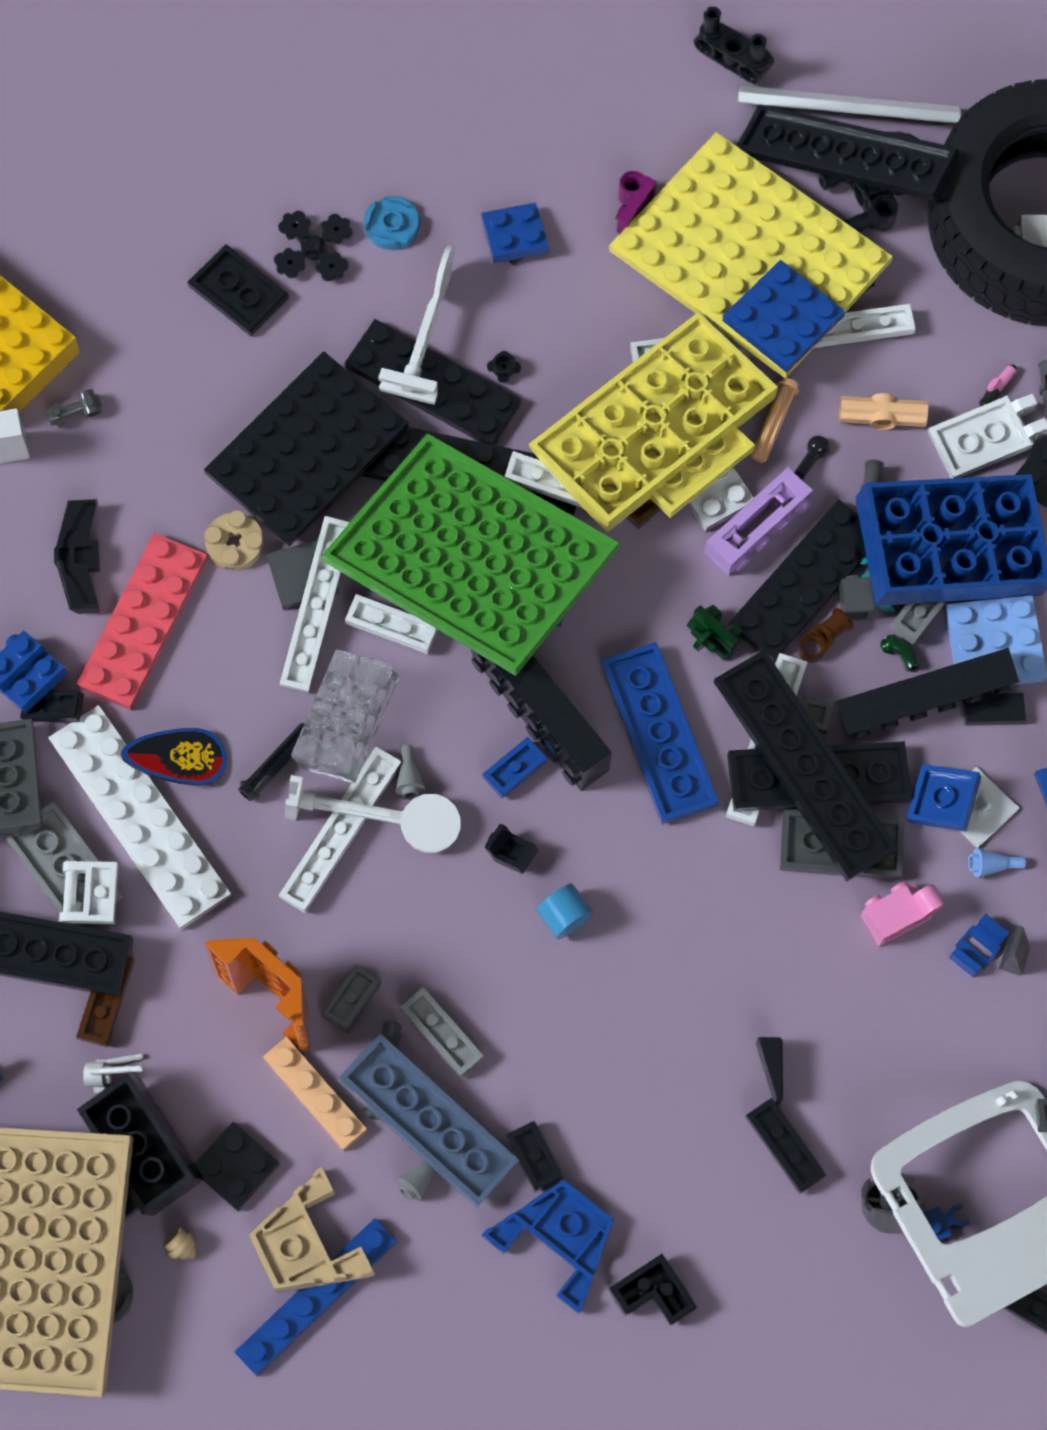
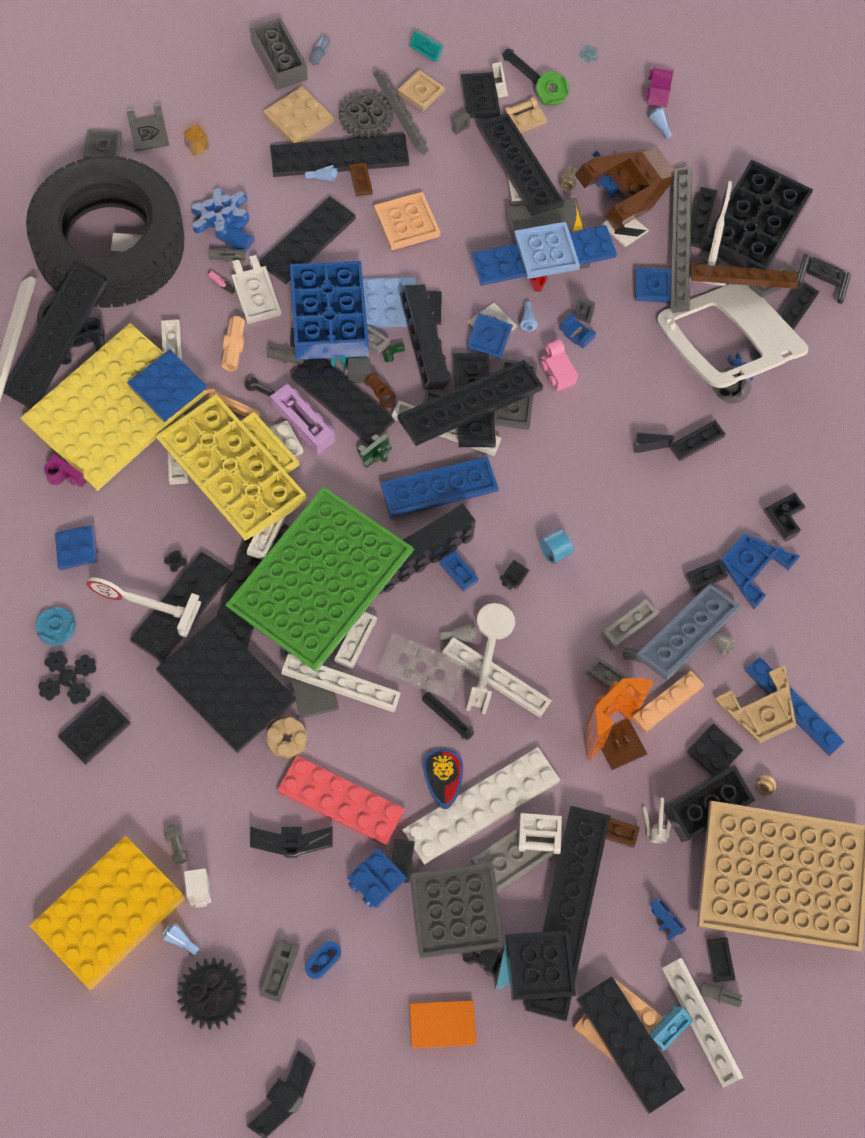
camera: 90 degrees left, 5 degrees down
(242, 1021) = (622, 745): none -> reddish brown piece

